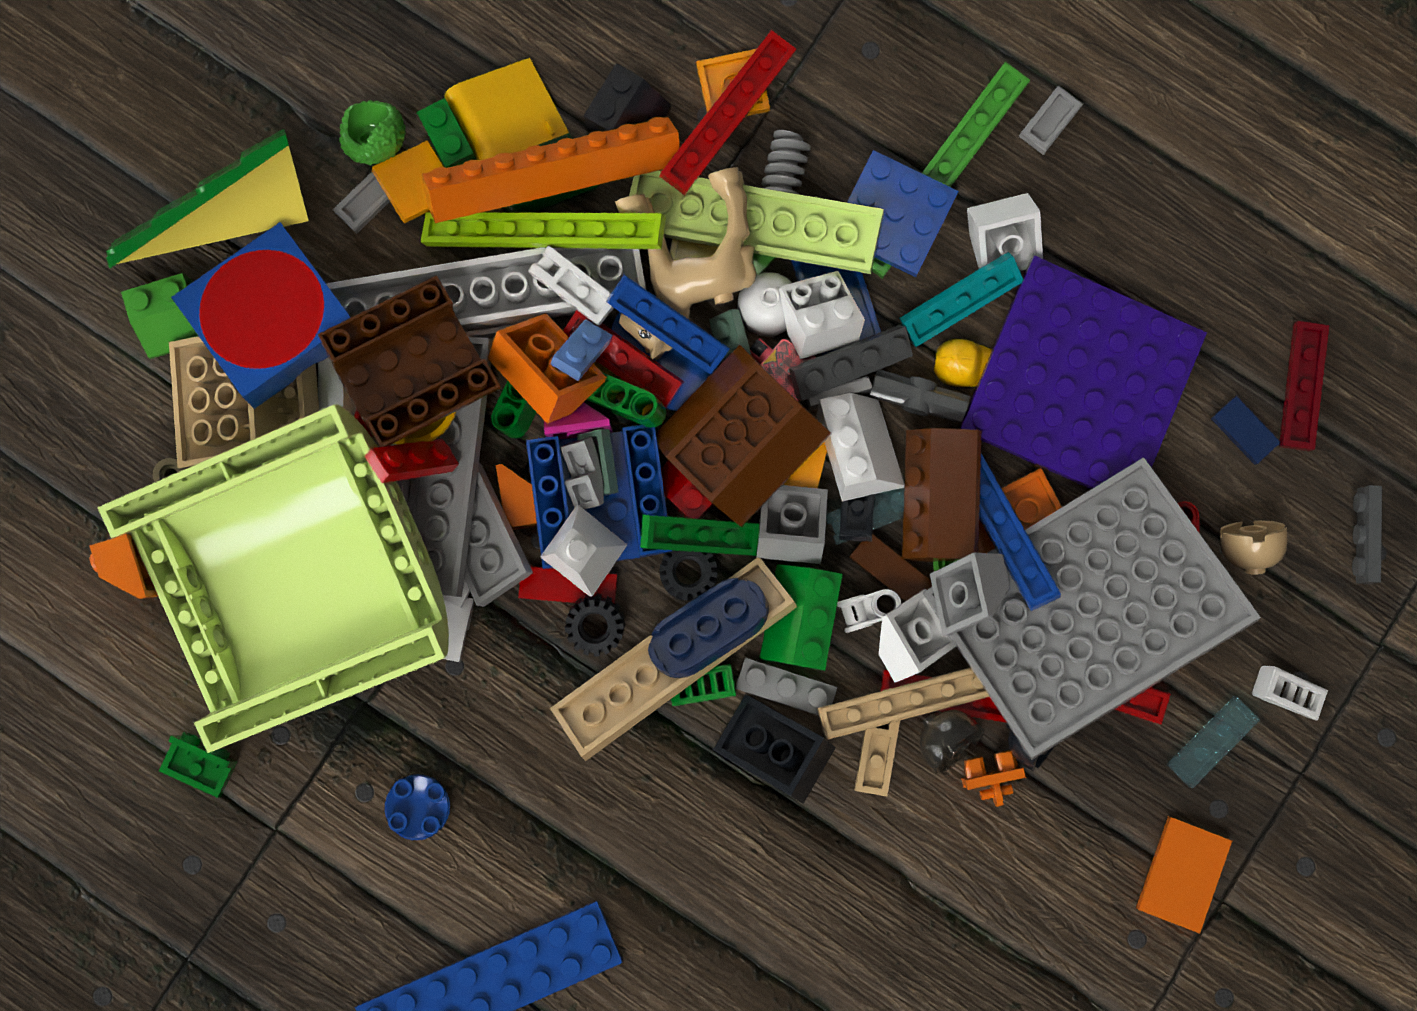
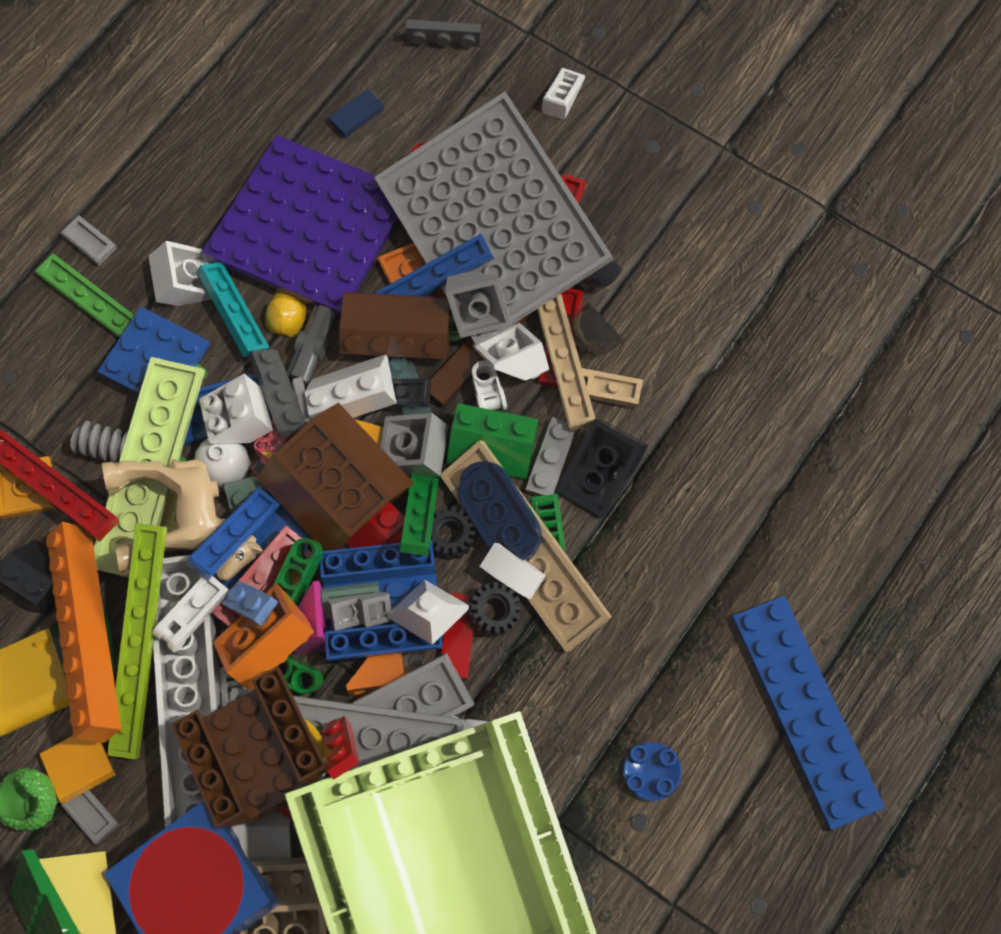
camera: 85 degrees left, 15 degrees down
(446, 134) = (38, 732): green brick -> none
(636, 645) = (512, 571): none -> white slope
(1006, 771) = (627, 311): orange hips -> none
(1183, 874) = (703, 171): orange tile -> none
(1213, 742) = (601, 146): clear light blue tile -> none
(1254, 545) = (447, 105): tan cylinder -> none
(1304, 386) = (324, 70): dark red plate -> none

